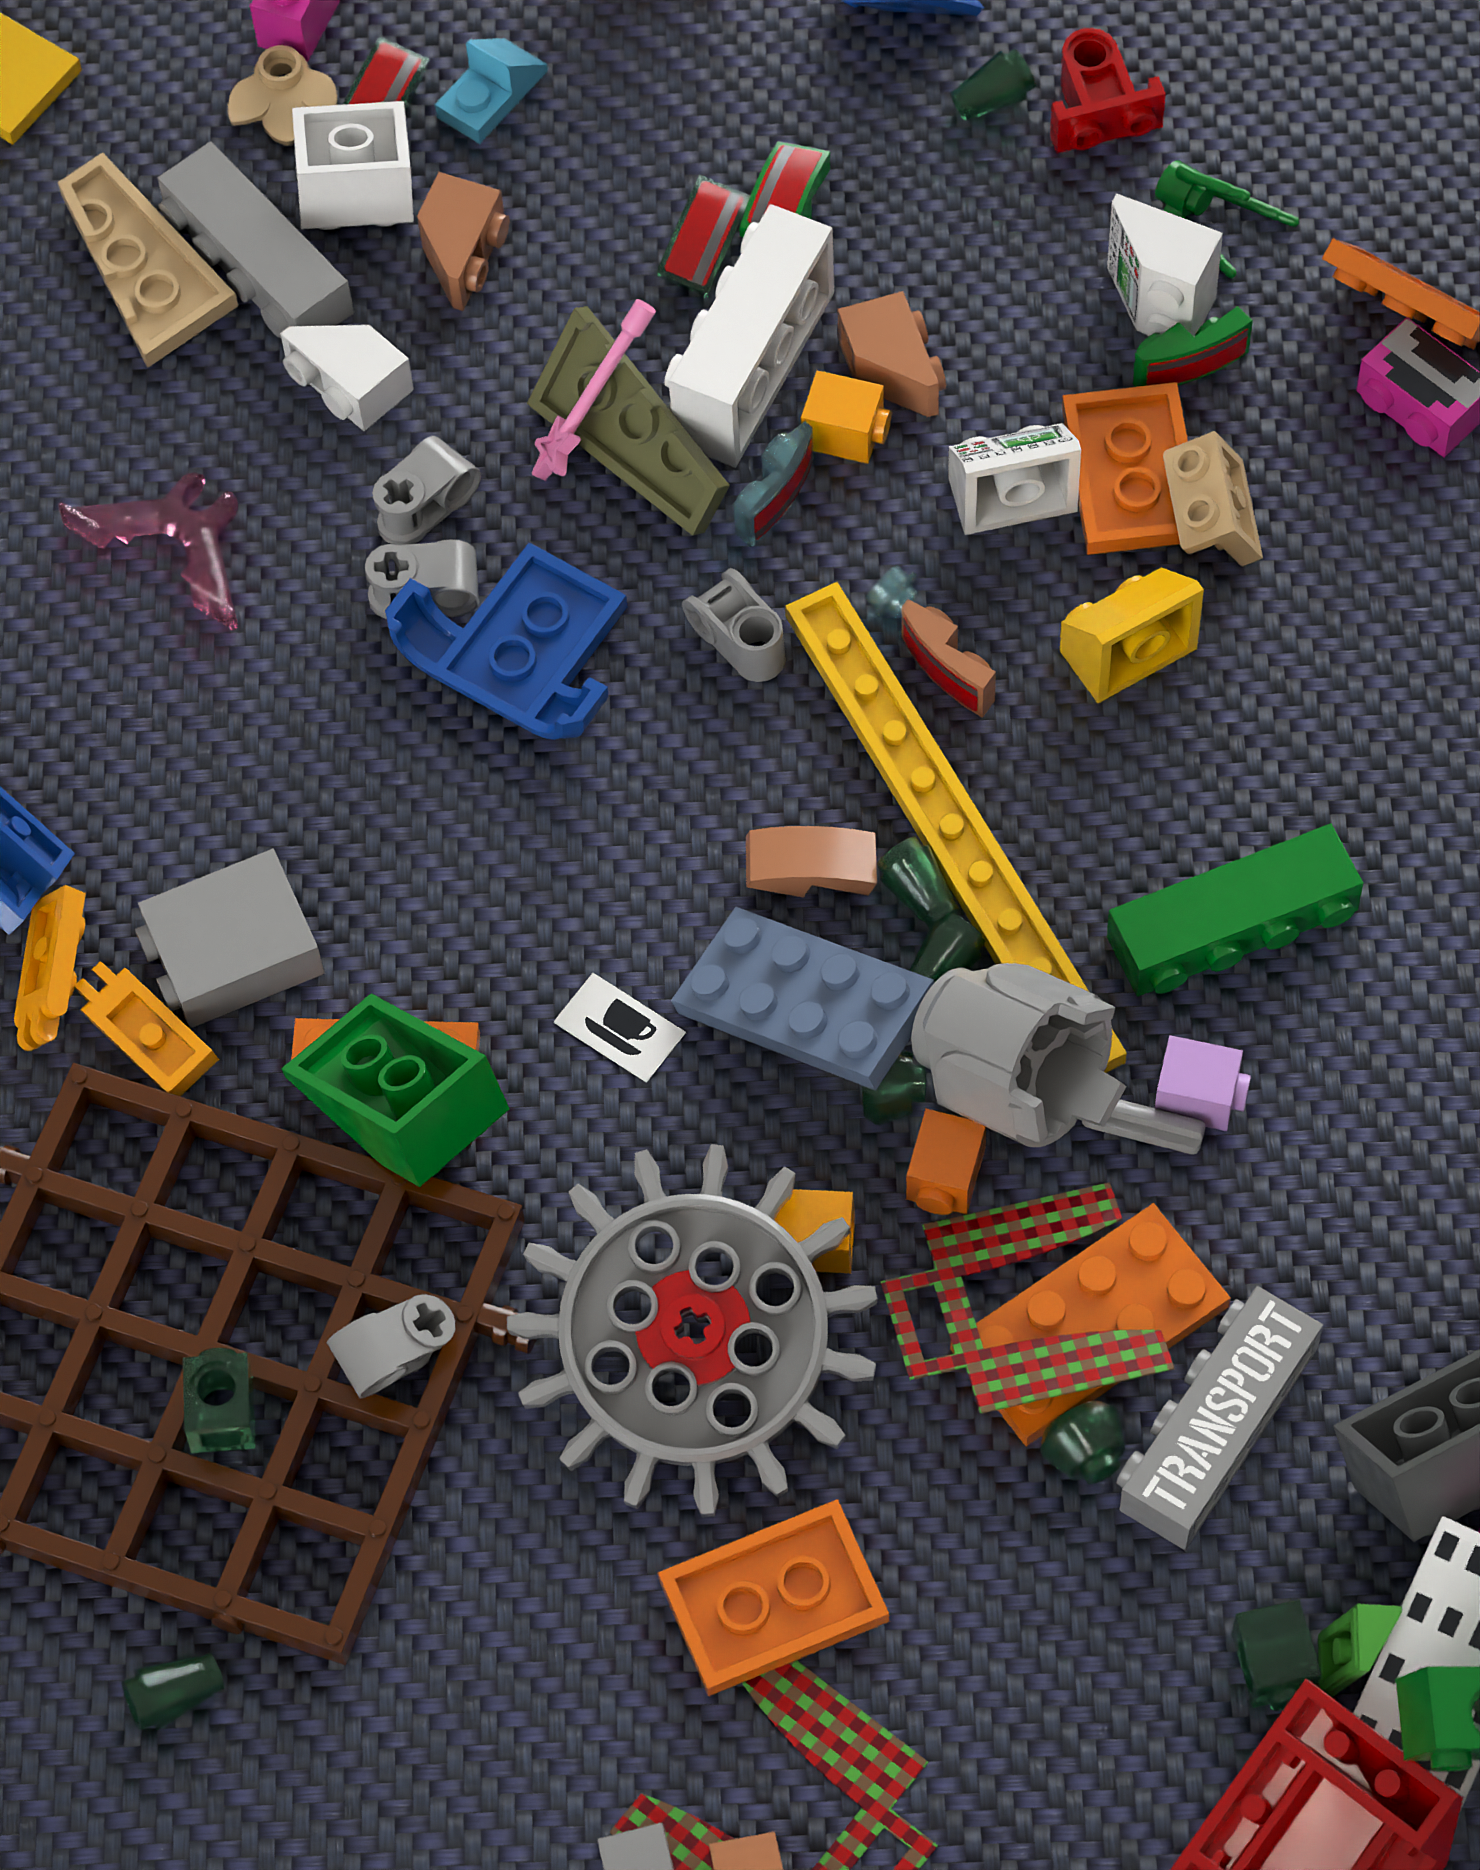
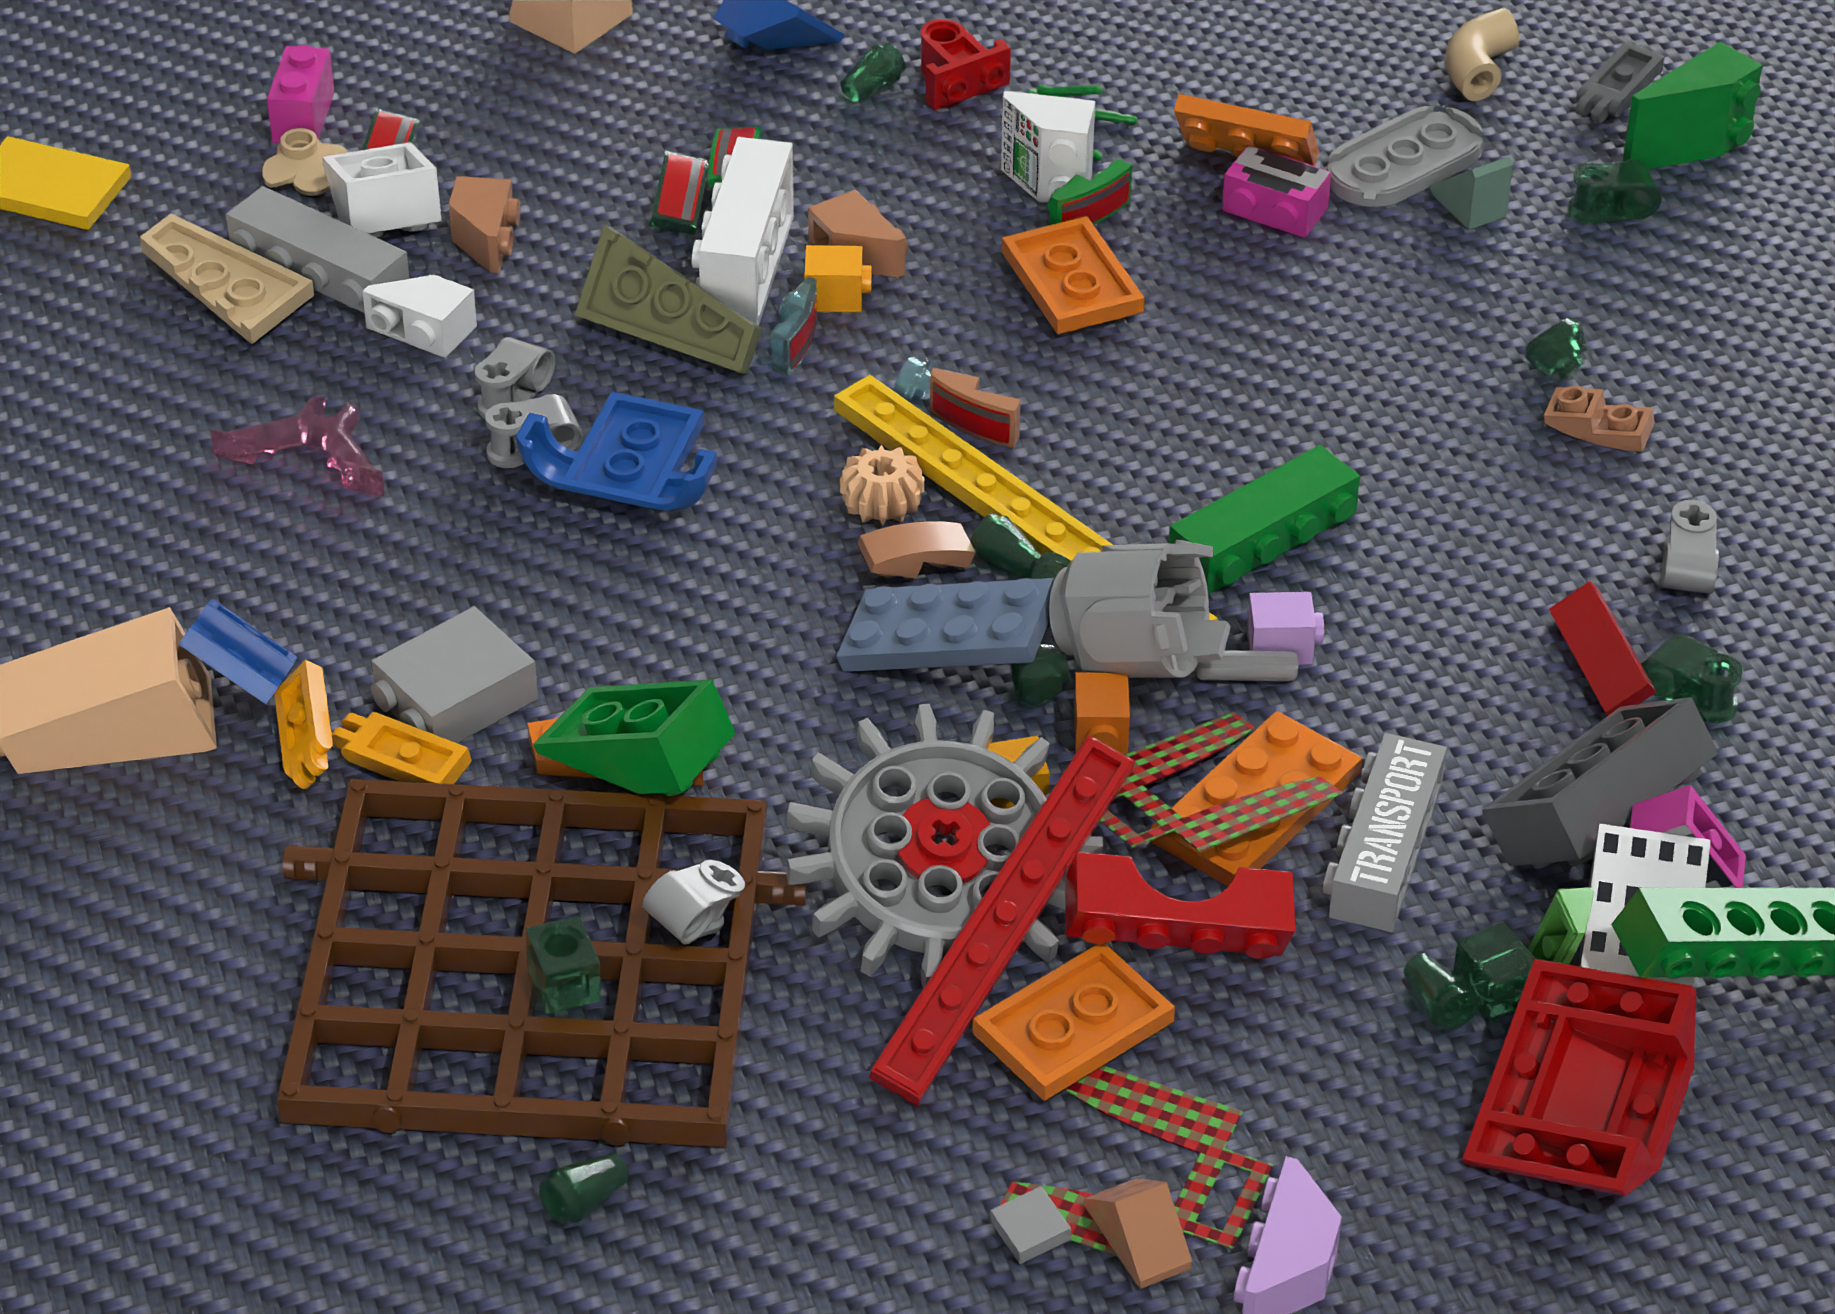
camera: 20 degrees left, 20 degrees down
(490, 87) = (473, 135): medium azure slope -> none
(561, 438) = (616, 323): bright pink piece -> none
(619, 1027) = (797, 688): white sticker -> none
(728, 1451) = (1001, 921): none -> red tile
(734, 617) = (801, 417): light grey piece -> none
(800, 734) = (882, 484): none -> light nougat gear
(853, 1461) = (1114, 903): none -> red arch
(1015, 477) = (986, 289): white slope -> none
(1085, 1442) = (1294, 853): clear green cone -> none
(1132, 631) = (1116, 364): yellow slope -> none
(1202, 1662) = (1441, 992): none -> clear green cone
(1212, 498) = (1142, 277): tan bracket -> none

